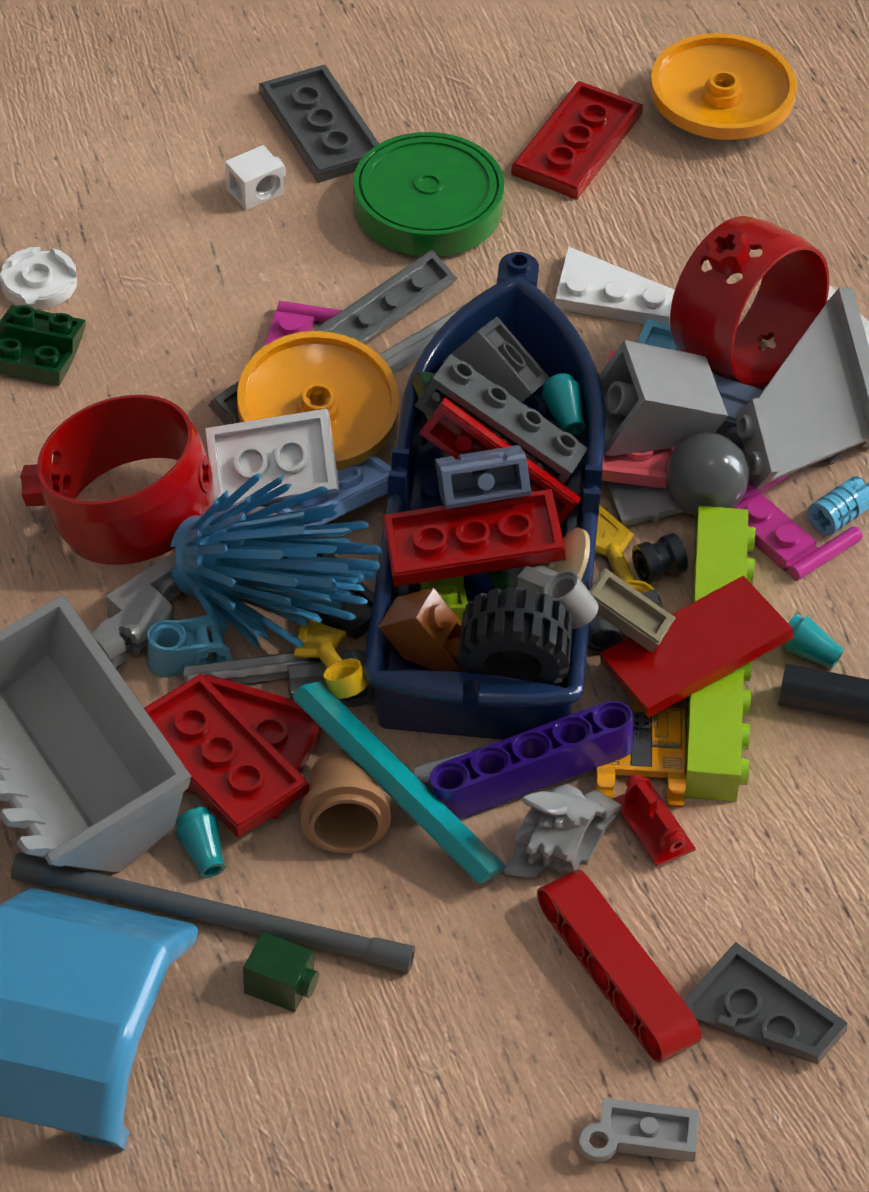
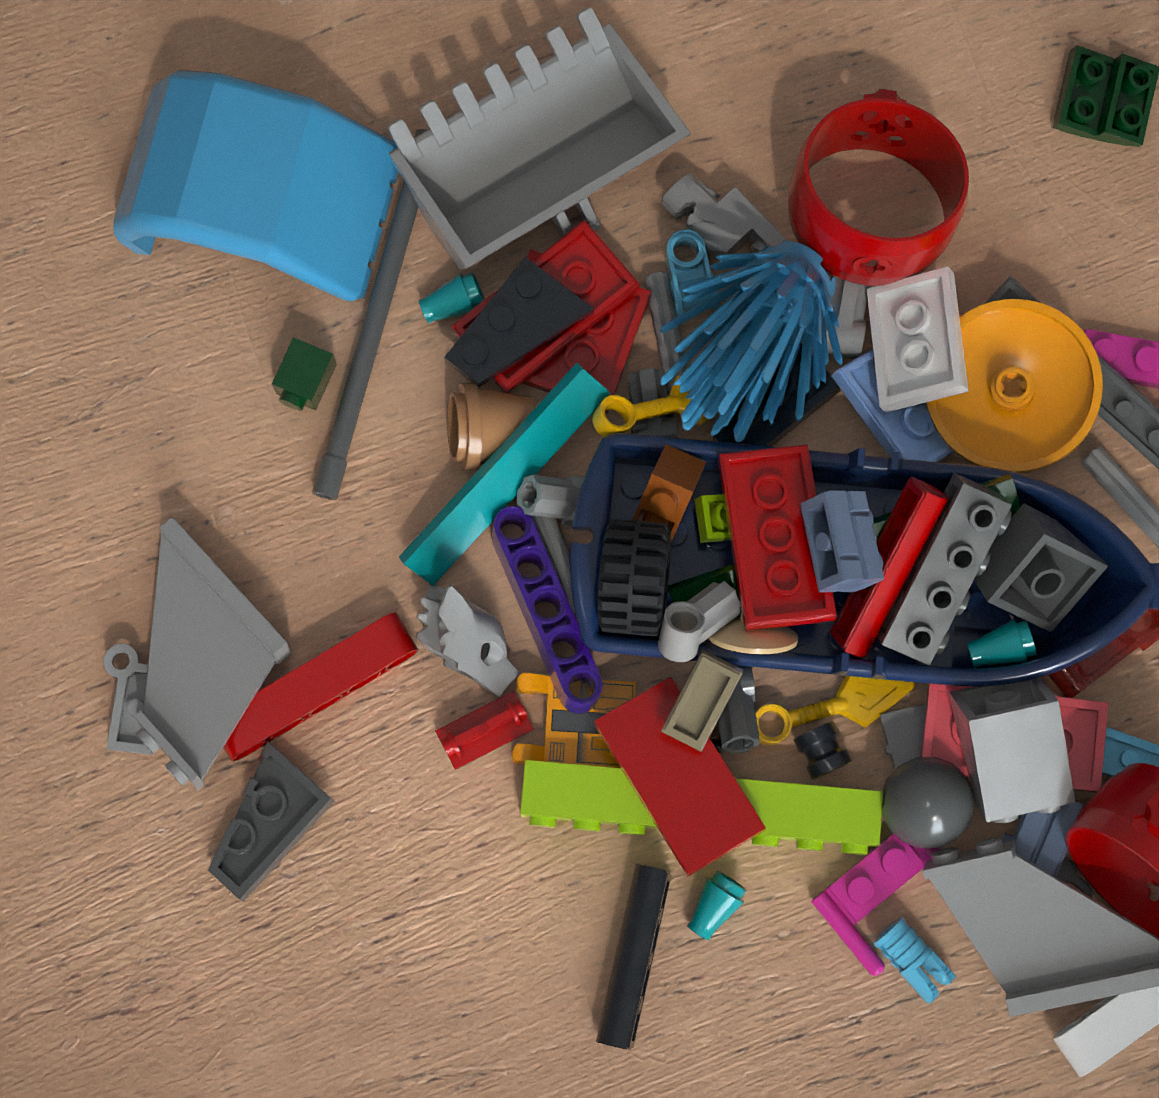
camera: 90 degrees right, 30 degrees up
(240, 767) = (515, 321): none -> black wing
(419, 742) = (550, 496): none -> light grey piece
(591, 1048) = (203, 658): none -> light grey piece

